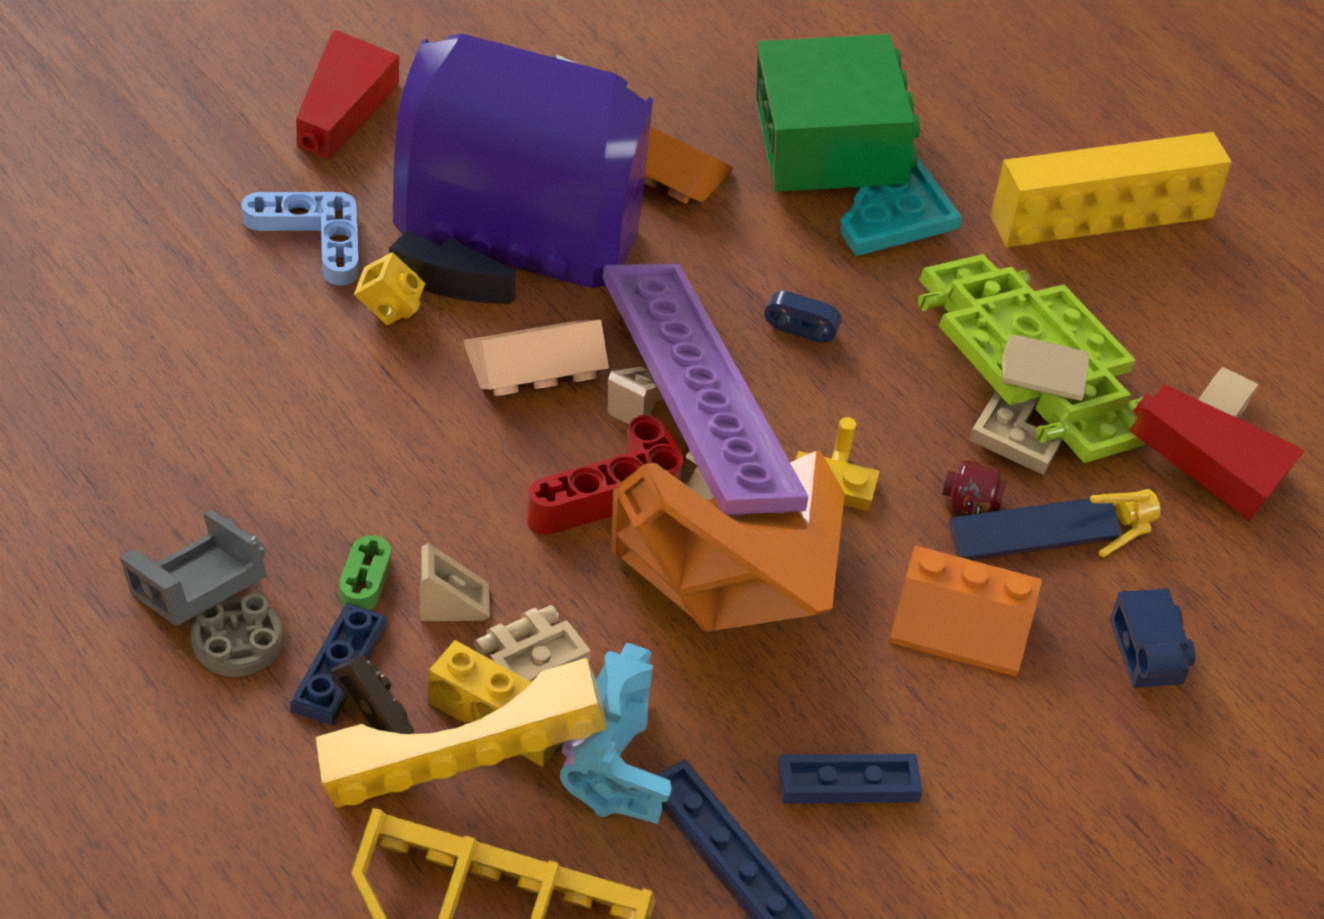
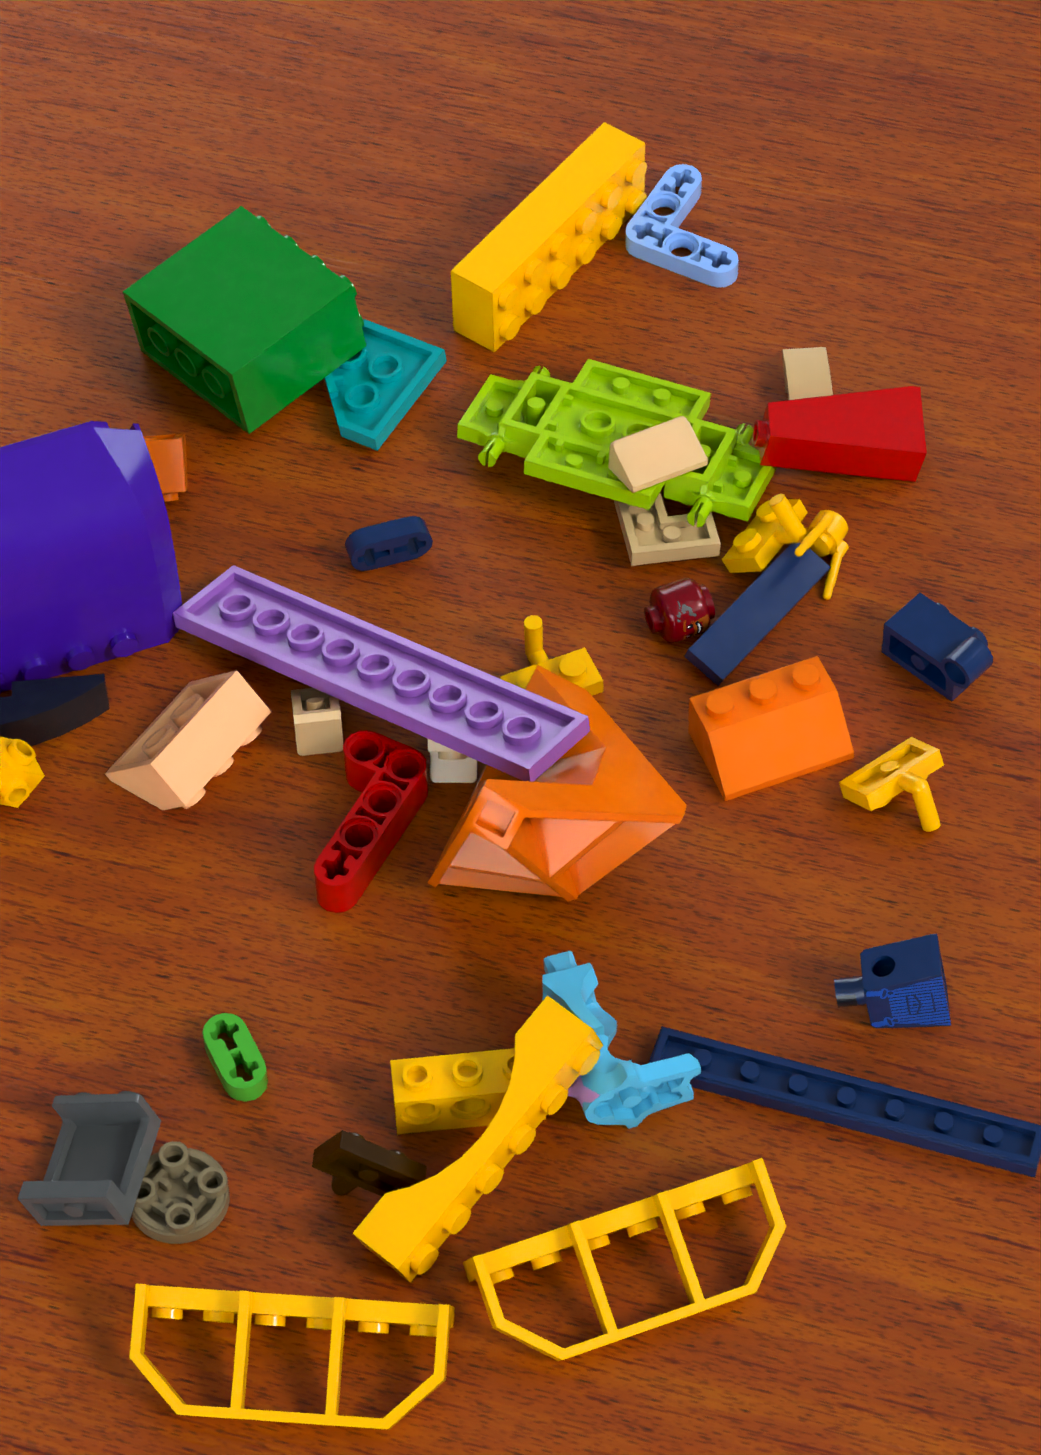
camera: 30 degrees left, 5 degrees up
(216, 753) = (272, 1310): none -> yellow plate
(353, 634) = (281, 1128): dark blue tile -> none
(450, 589) = (326, 1020): tan slope -> none
(544, 648) = (461, 1020): tan plate -> none
(849, 778) = (807, 946): dark blue plate -> none
(890, 852) = (900, 985): none -> dark blue torso
(1033, 703) = (892, 773): none -> yellow plate
(1103, 477) = (774, 525): none -> yellow plate
(1197, 239) = (655, 236): none -> light blue beam

